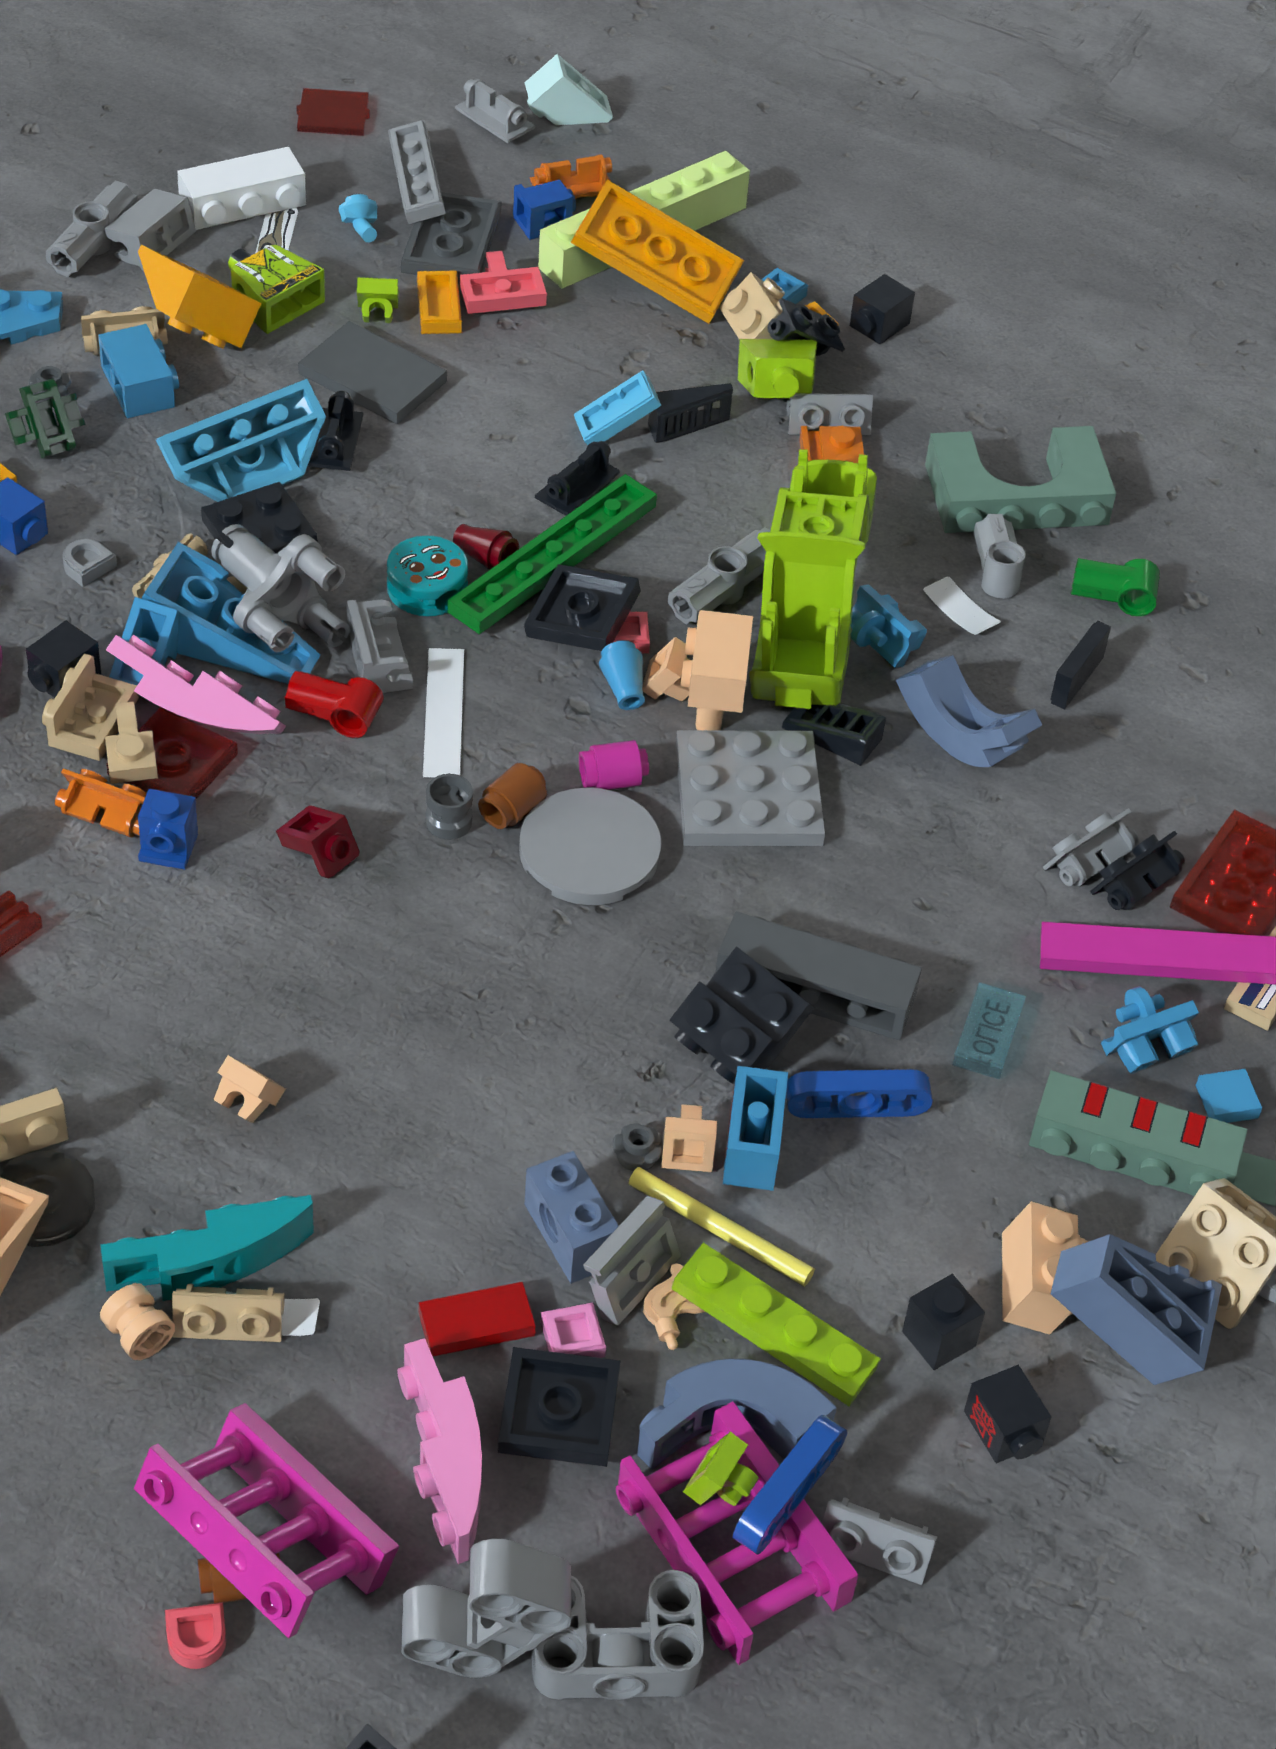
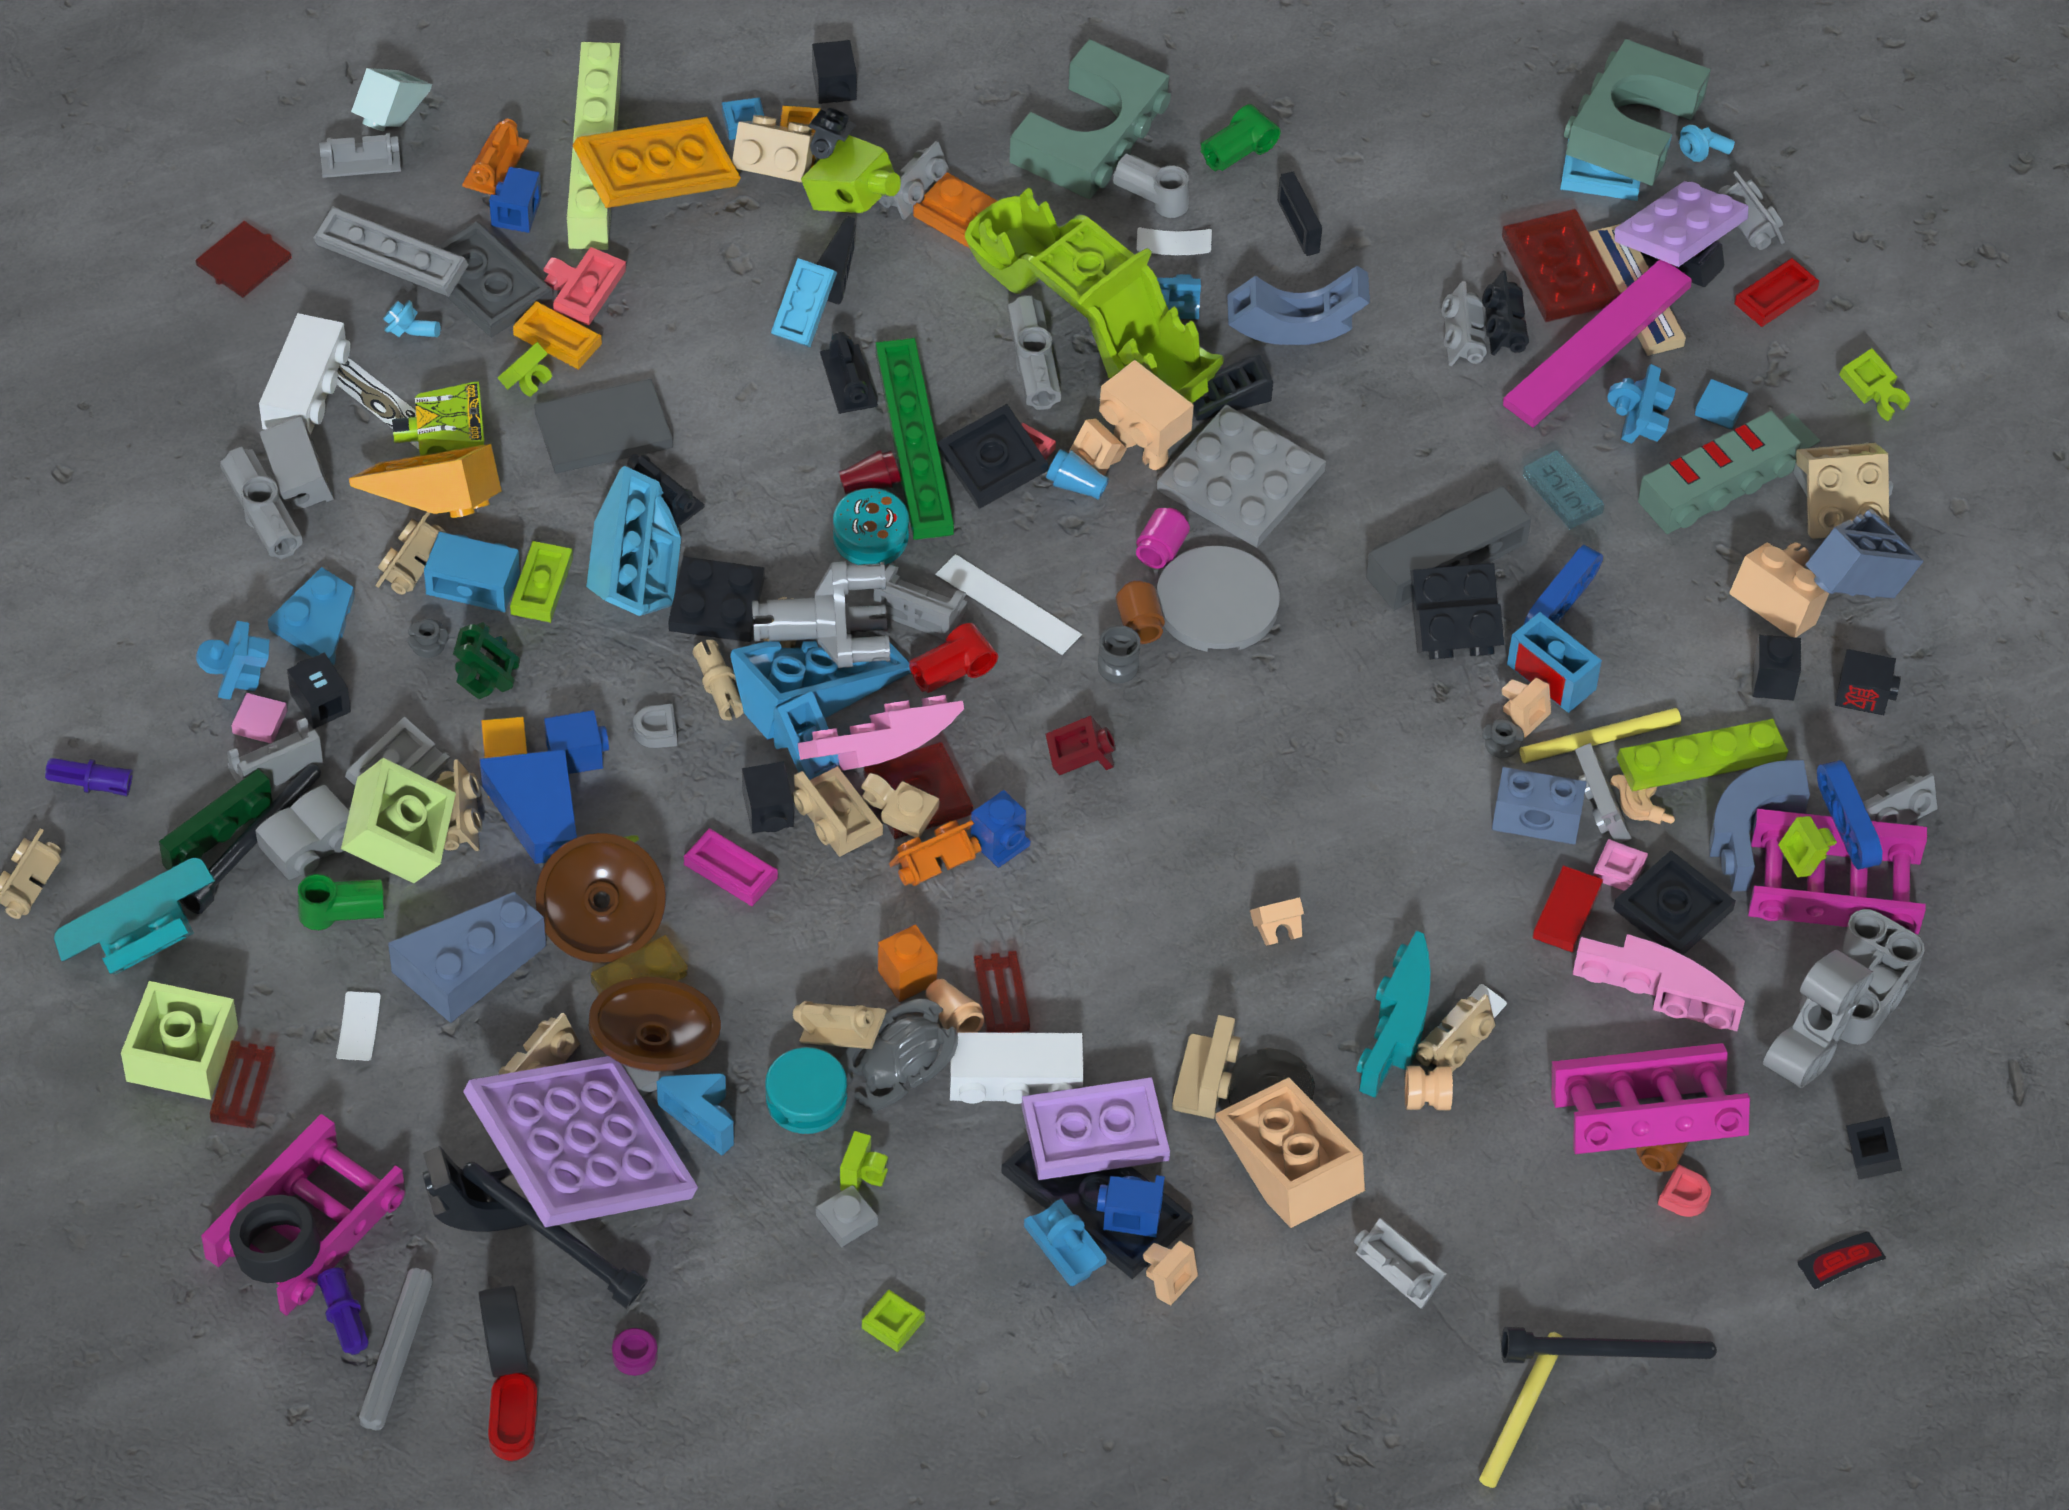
camera: 50 degrees left, 5 degrees up
(166, 414) = (541, 581): none -> lime plate

